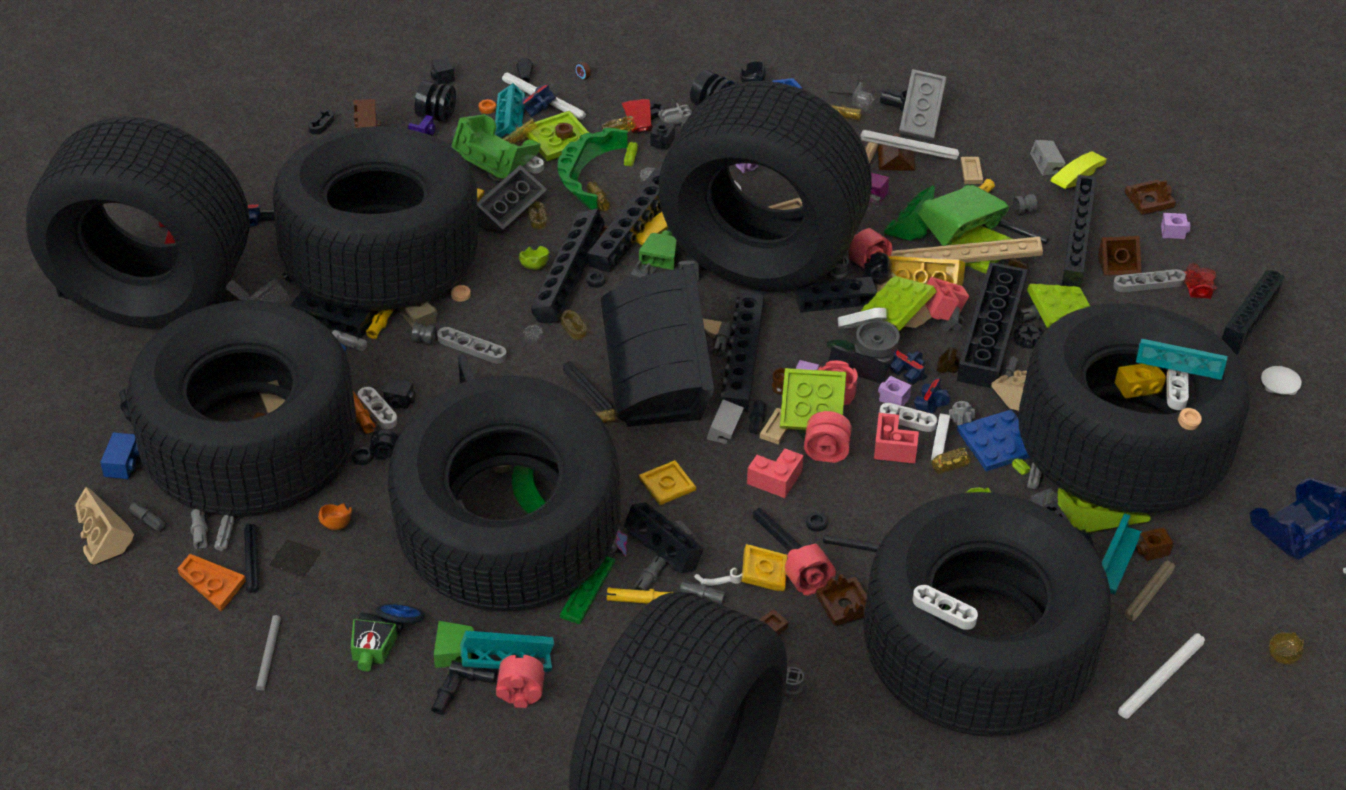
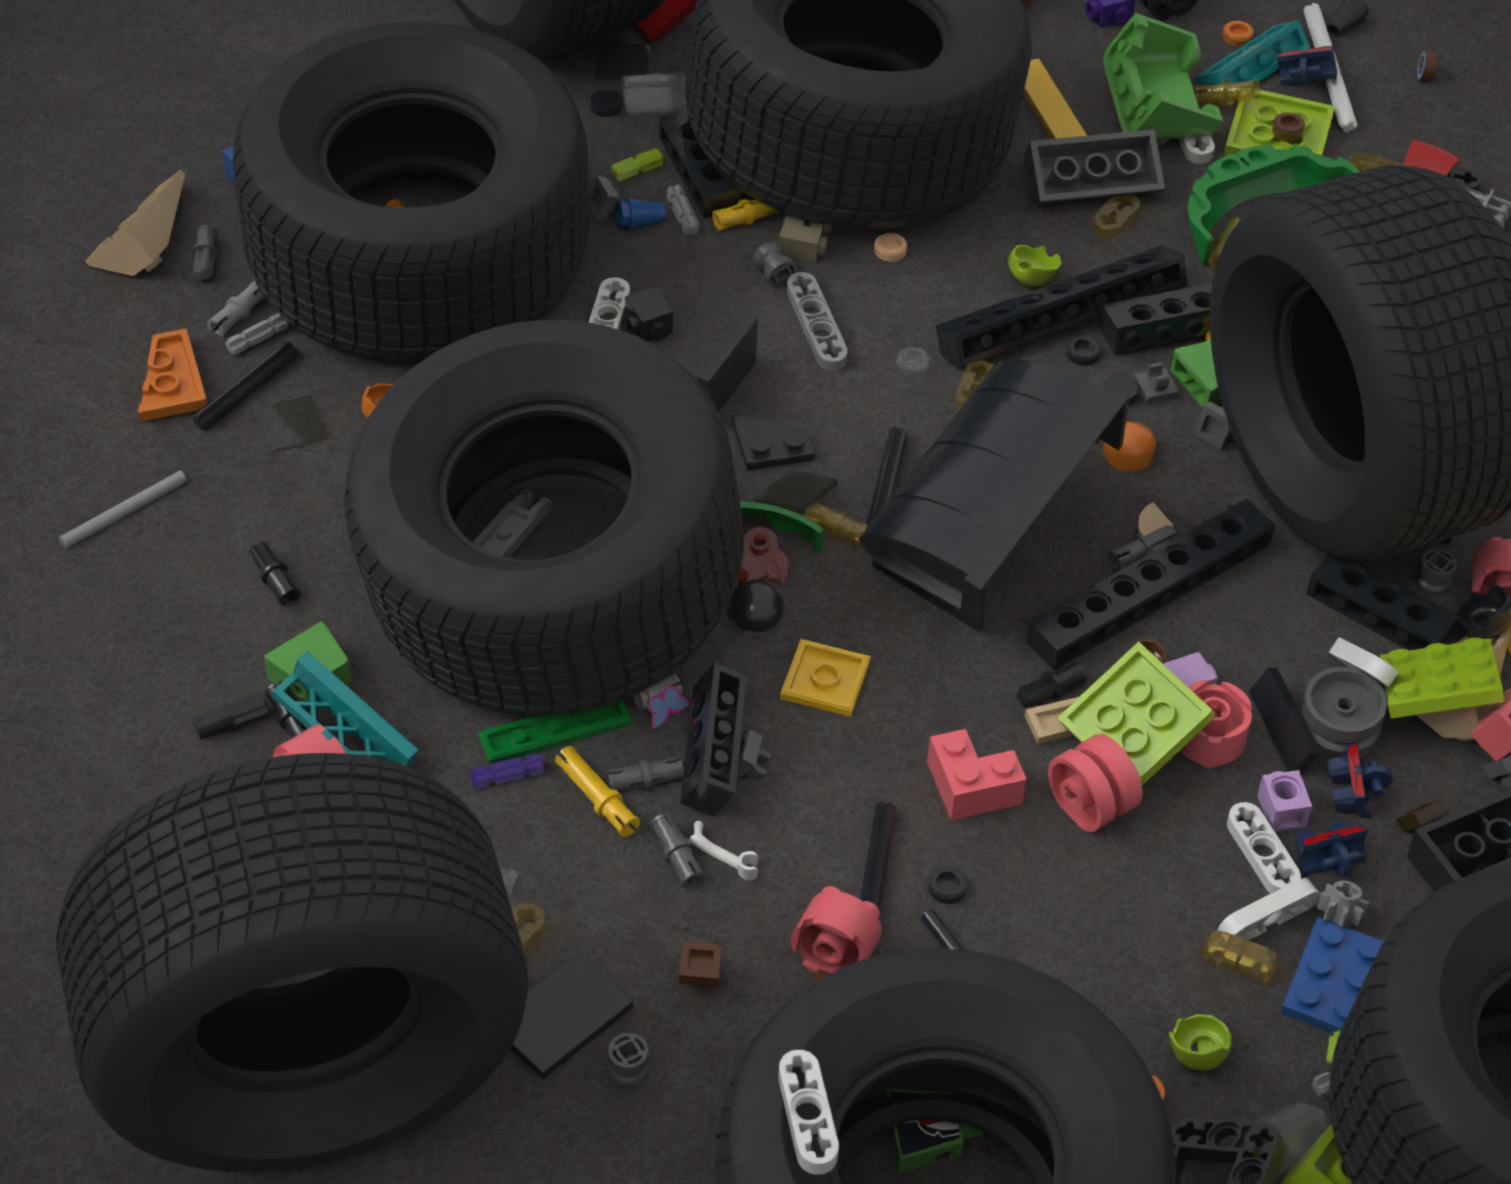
camera: 45 degrees right, 5 degrees up
(363, 416) = (578, 307): orange pin -> none
(371, 642) = (230, 587): torso -> none
(400, 613) = (301, 578): wheel -> none
(592, 619) = (507, 770): none -> dark purple axle
(725, 422) = (995, 655): light grey hinge -> none
(764, 568) = (788, 882): yellow tile -> none
(841, 343) = (1295, 678): clear green tile -> none
(894, 443) = (1183, 860): coral brick -> none

